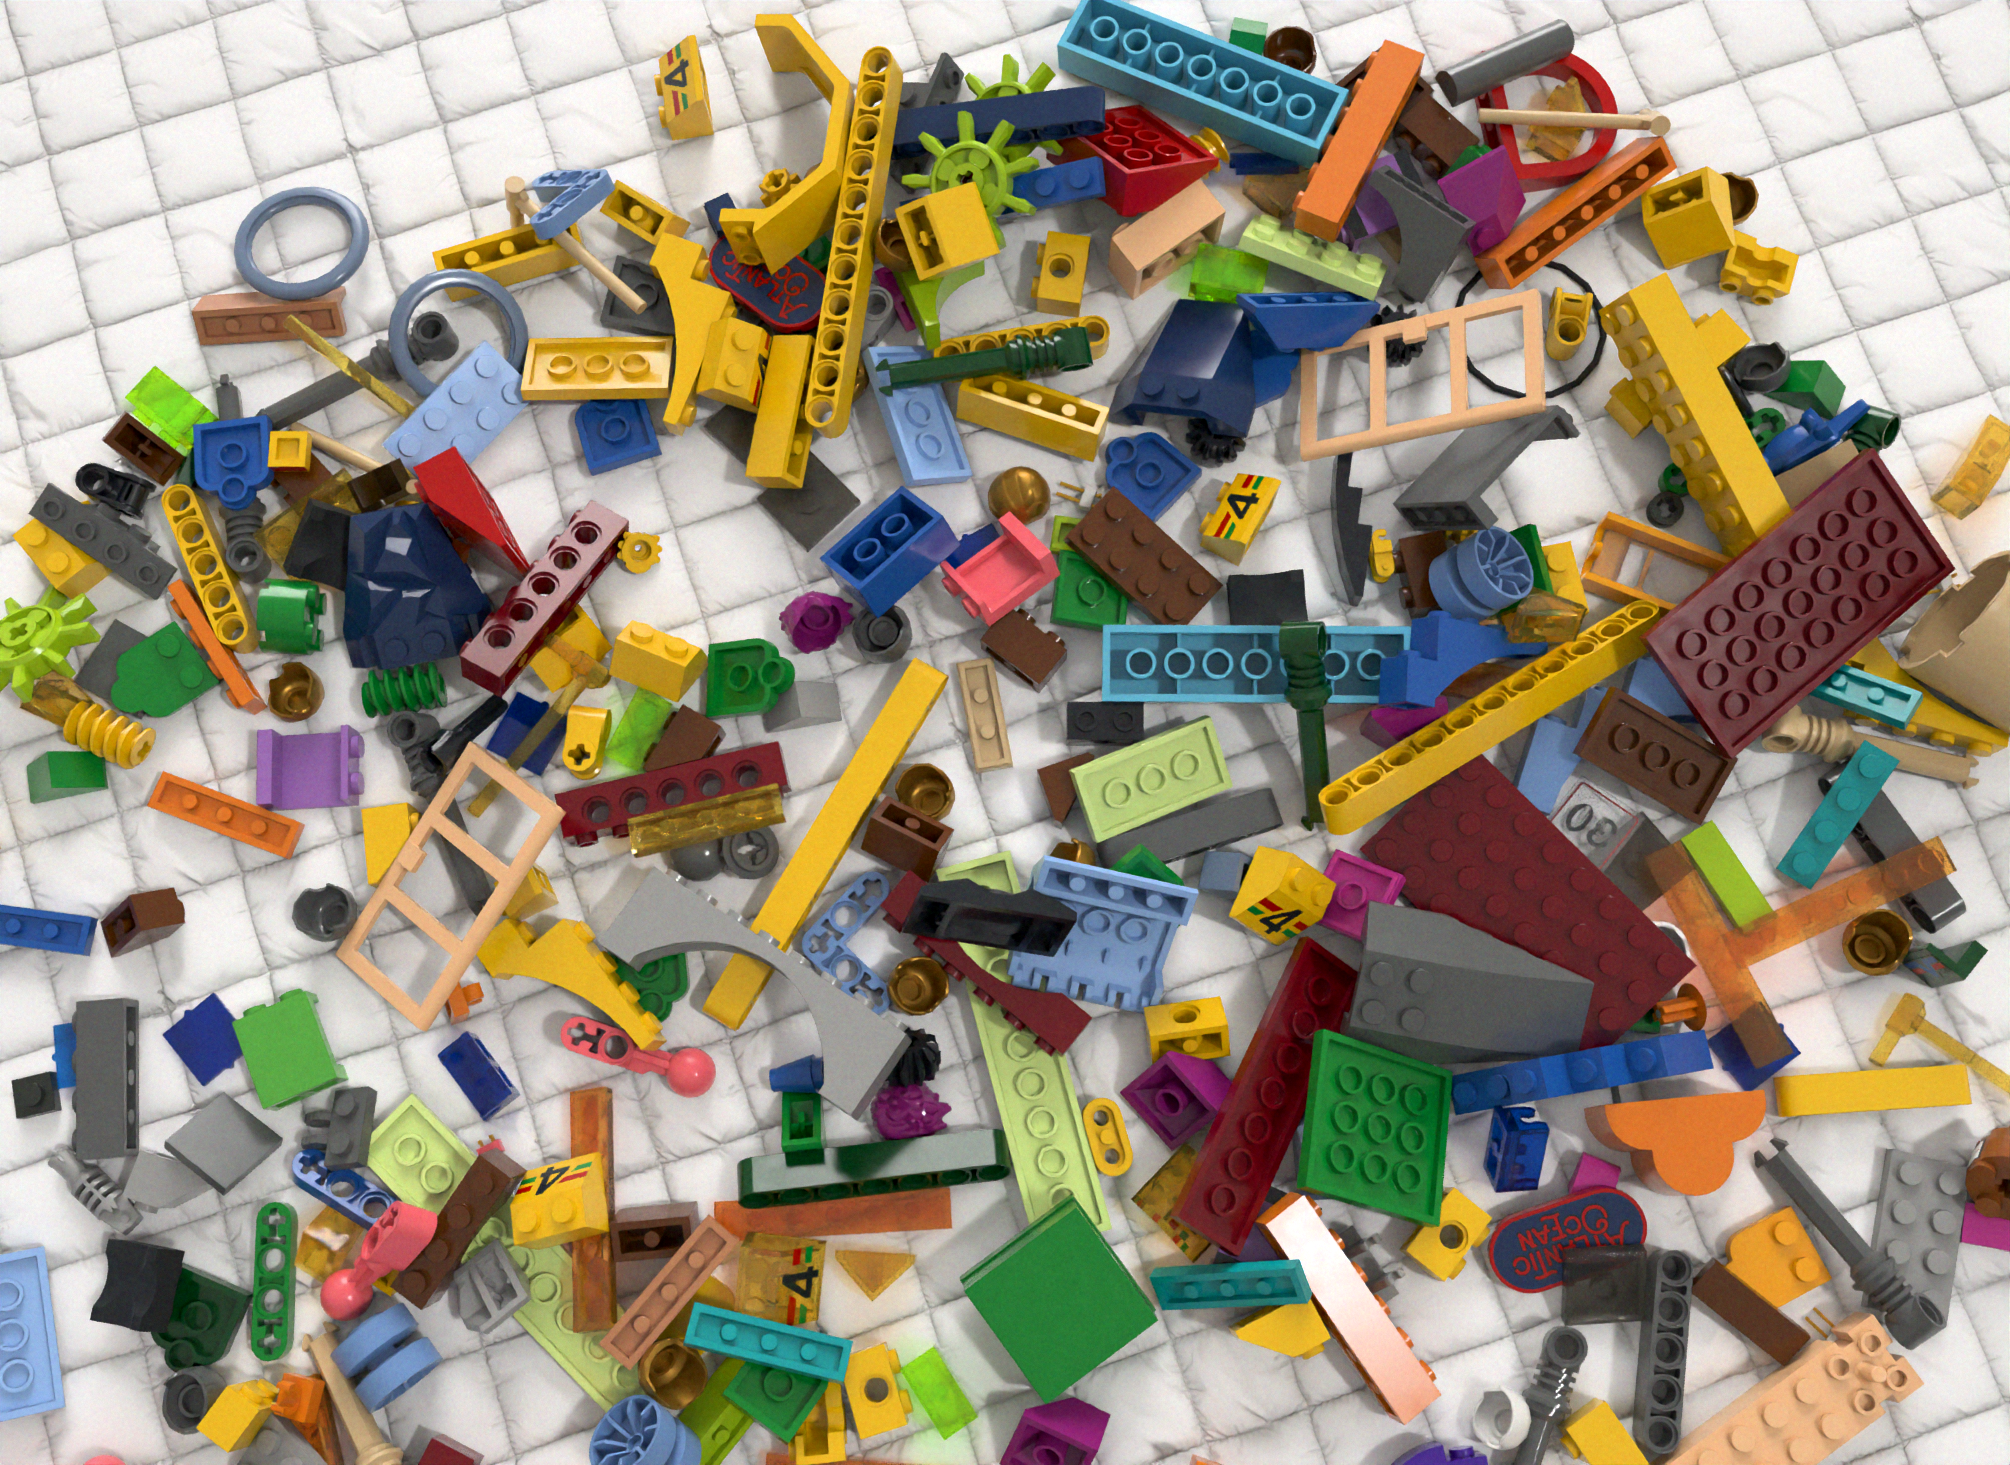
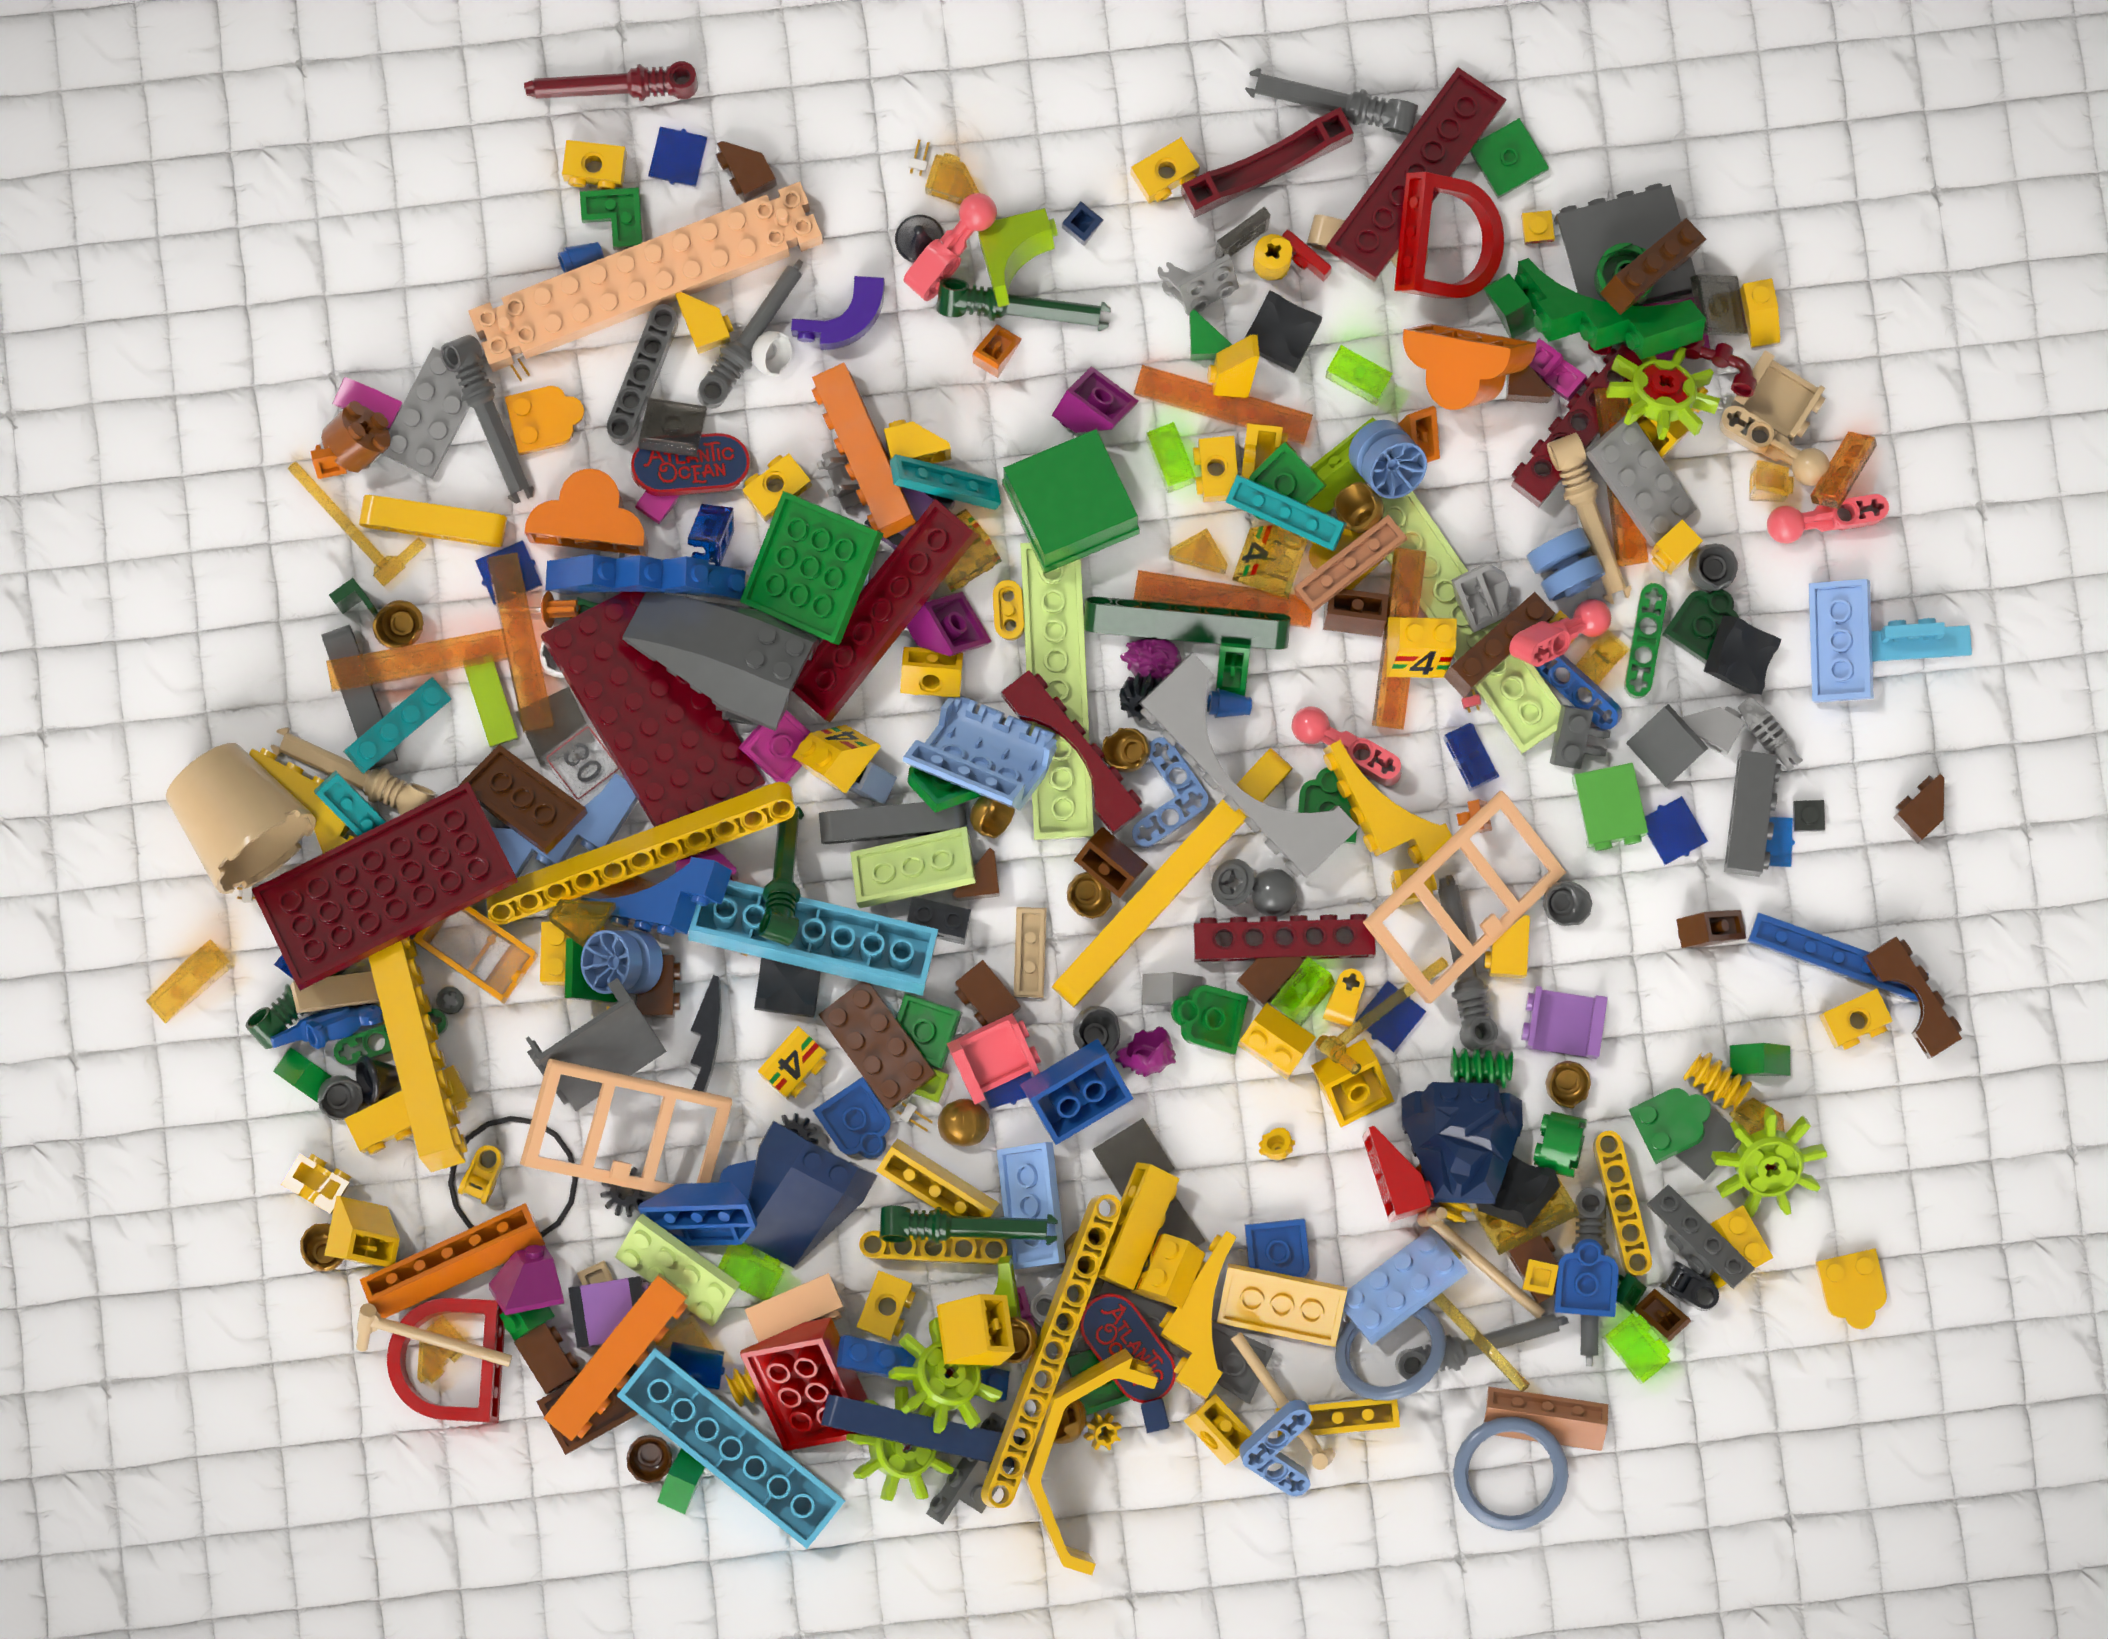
camera: 170 degrees left, 5 degrees up
(223, 660) = (1622, 1124): orange plate -> none
(226, 815) = (1636, 999): orange plate -> none
(298, 1397) = (1634, 551): orange tile -> none
(380, 486) = (1471, 1231): dark brown panel -> none
(446, 745) = (1449, 1007): black piece -> none
(499, 668) = (1300, 1161): brick -> none
(684, 92) = (1167, 1537): yellow slope -> none
(706, 820) = (1261, 905): clear yellow plate -> none
(990, 917) = (1059, 775): black slope -> none
(1381, 557) = (688, 1008): yellow piece -> none
(1429, 233) = (581, 1267): dark grey arch -> none
(1506, 62) = (474, 1404): dark grey brick -> none
(1749, 1311) = (573, 387): reddish brown tile -> none

